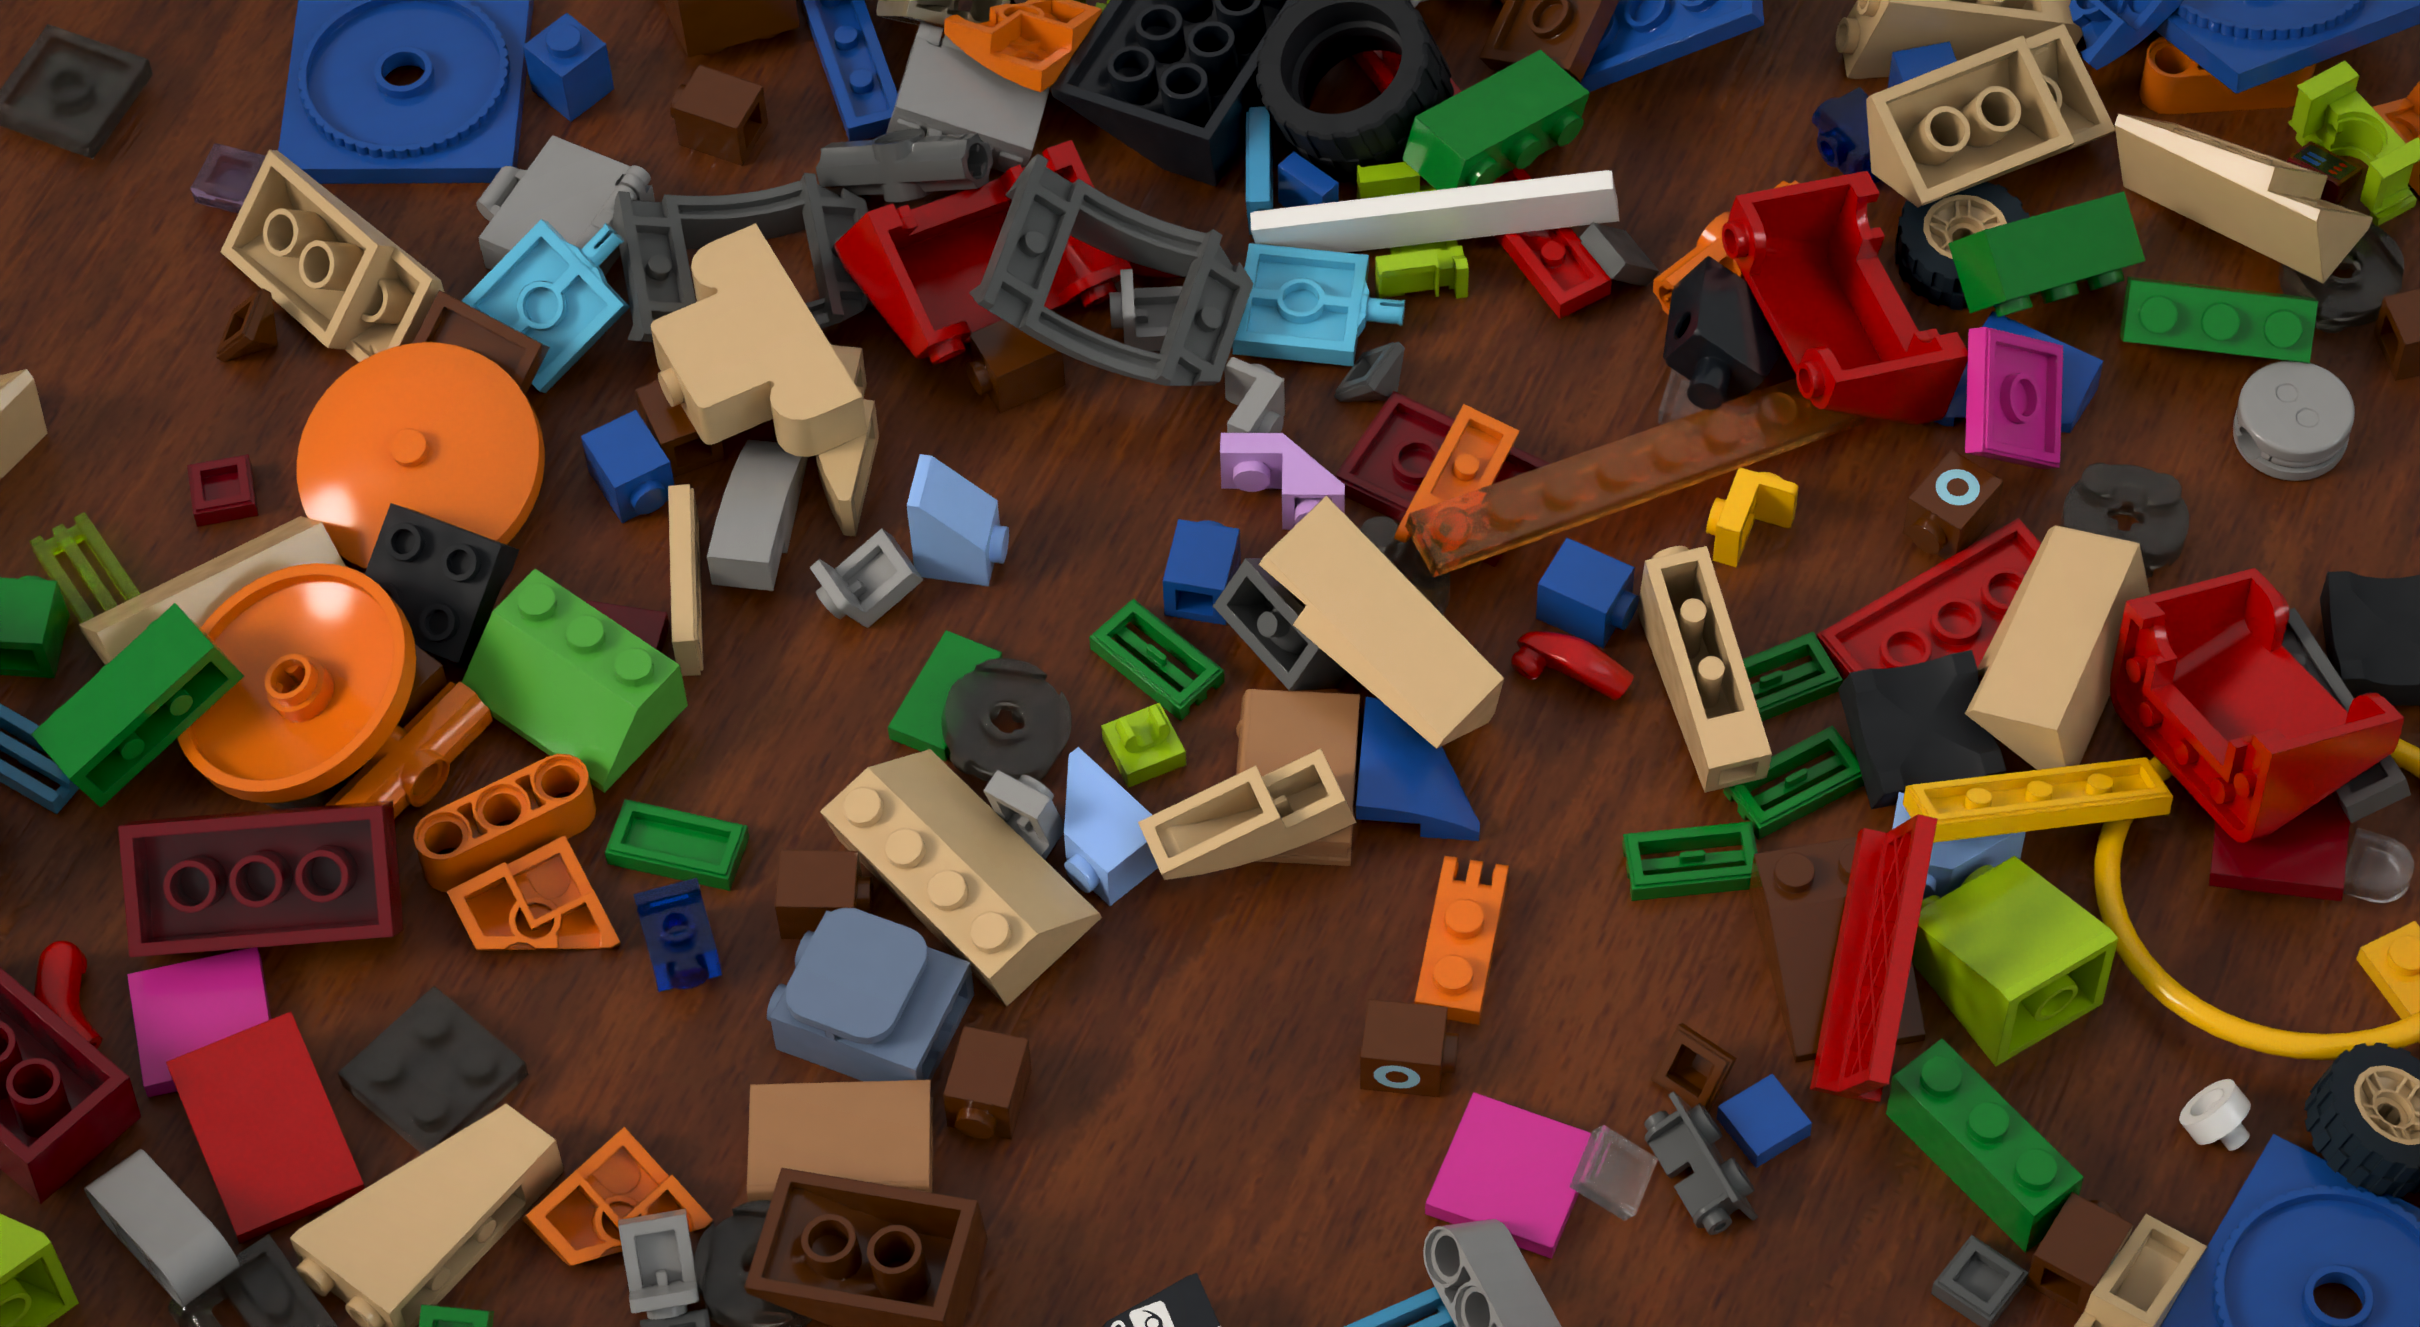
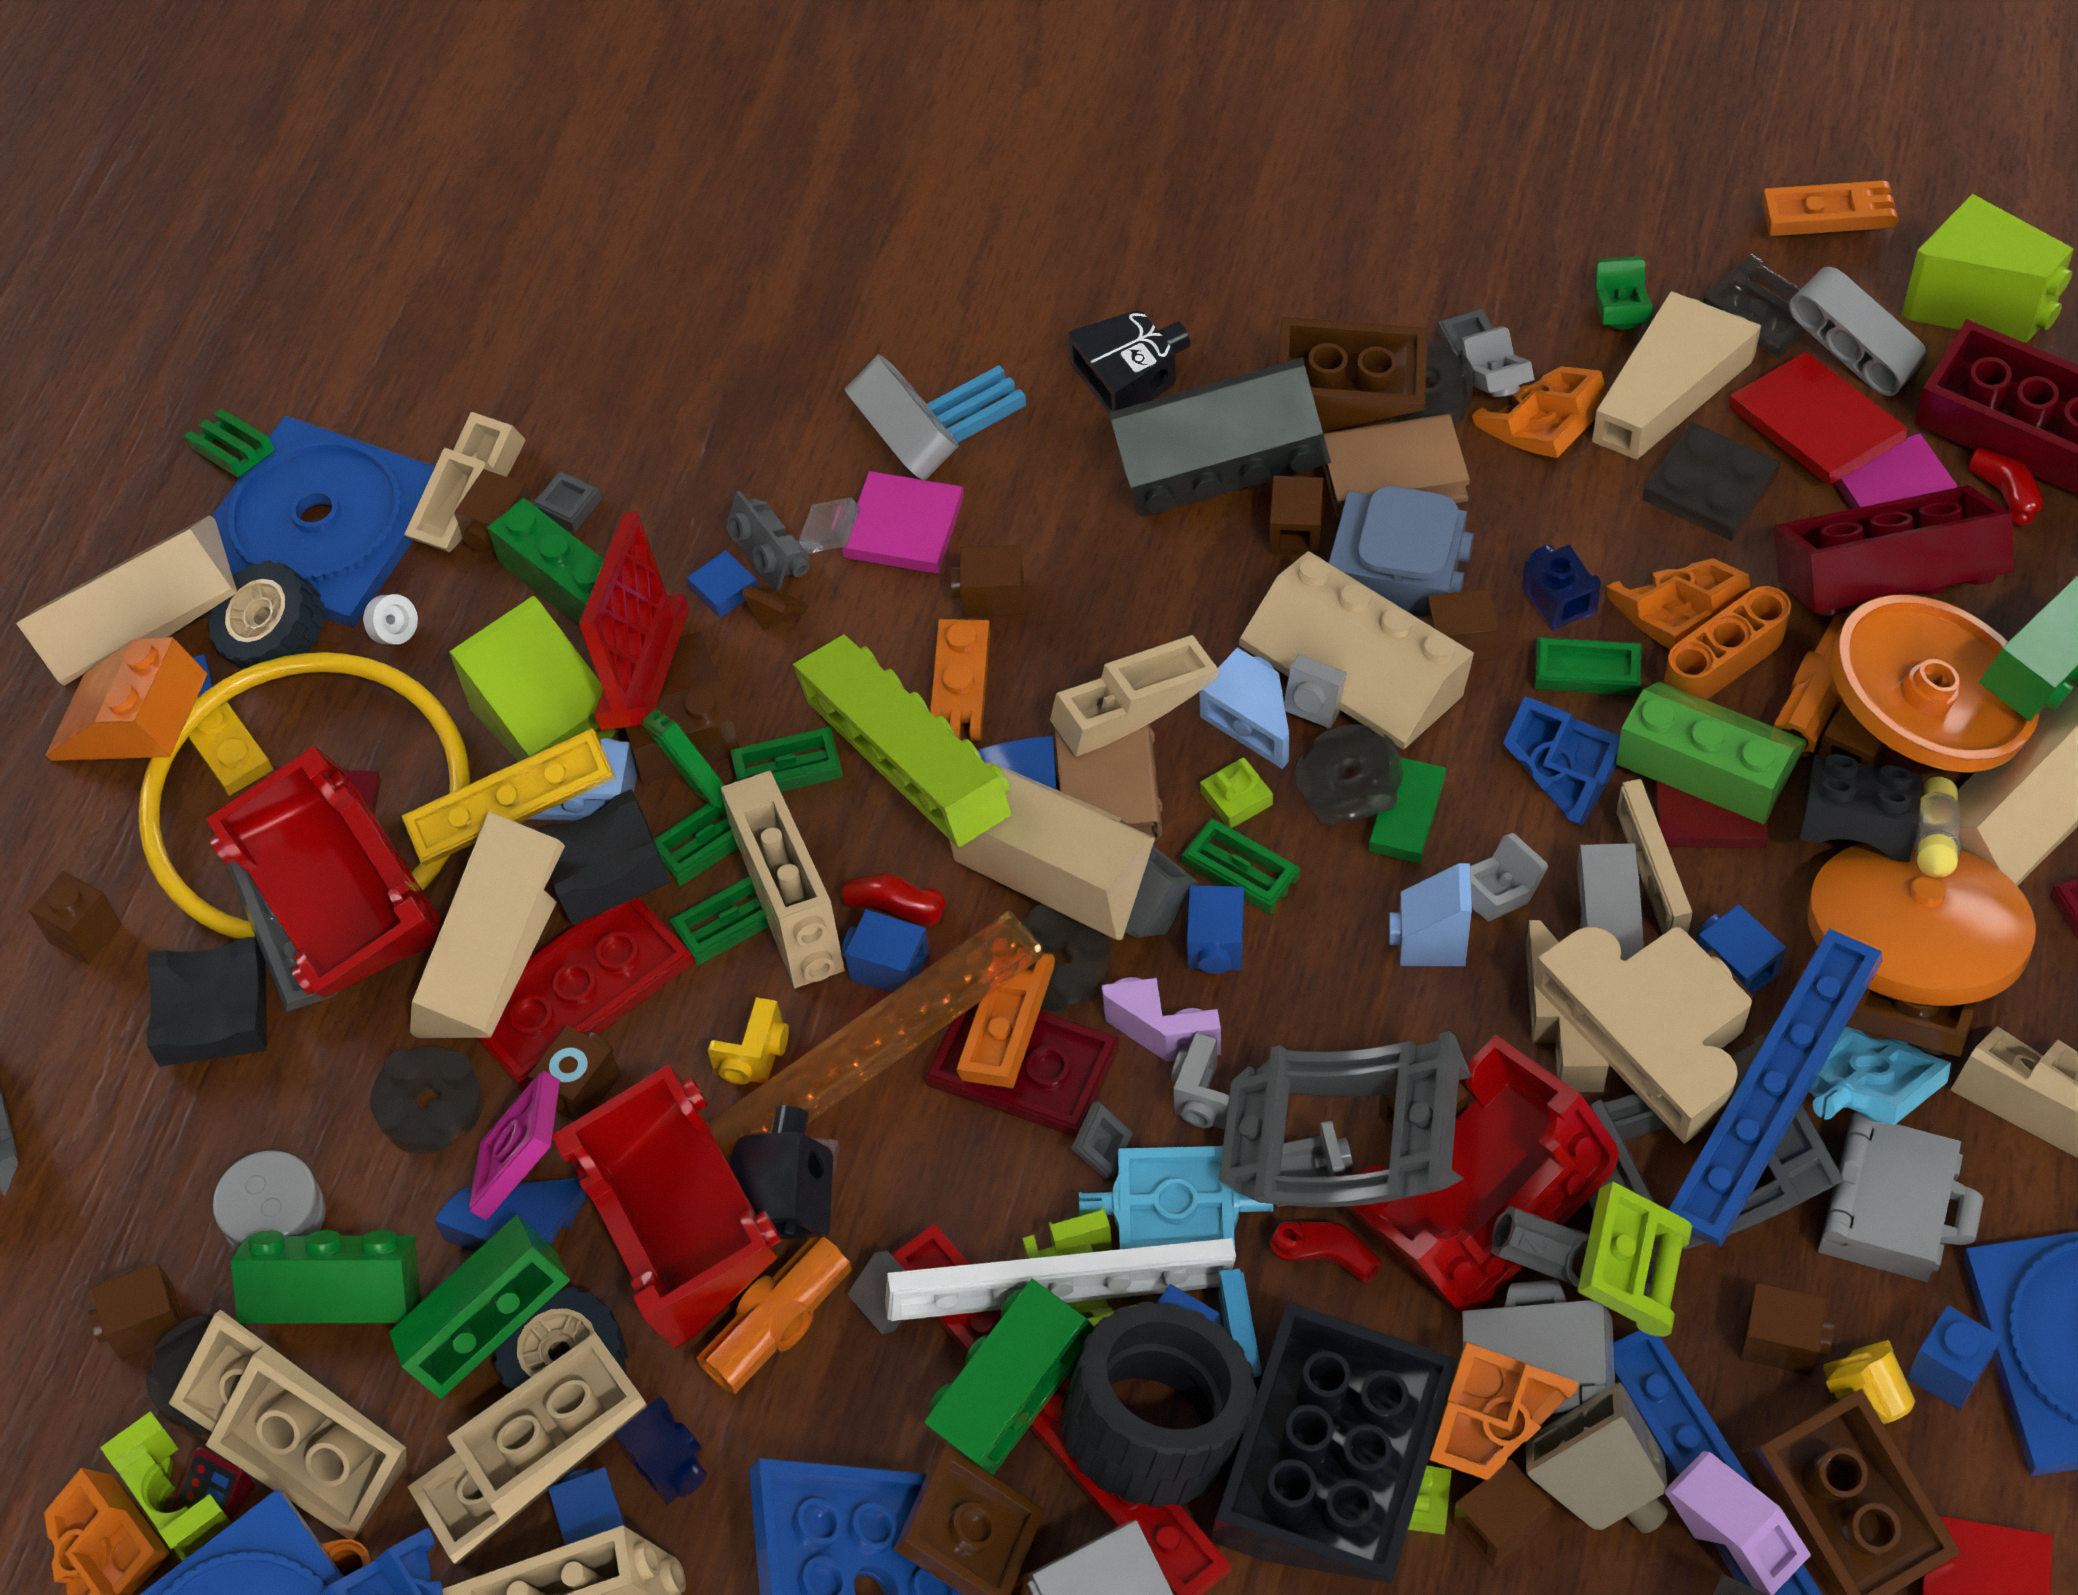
camera: 175 degrees right, 0 degrees up
(368, 503) = (1939, 828): none -> piece
(647, 265) = (1775, 1086): none -> blue plate
(656, 58) = (1878, 1375): none -> yellow piece
(743, 732) = (1563, 756): none -> blue slope
(855, 126) = (1621, 1254): none -> lime plate
(1068, 1161) = (1220, 437): none -> pearl dark grey slope
(1545, 785) = (904, 740): none -> lime brick
(1794, 815) = (684, 757): none -> green tile

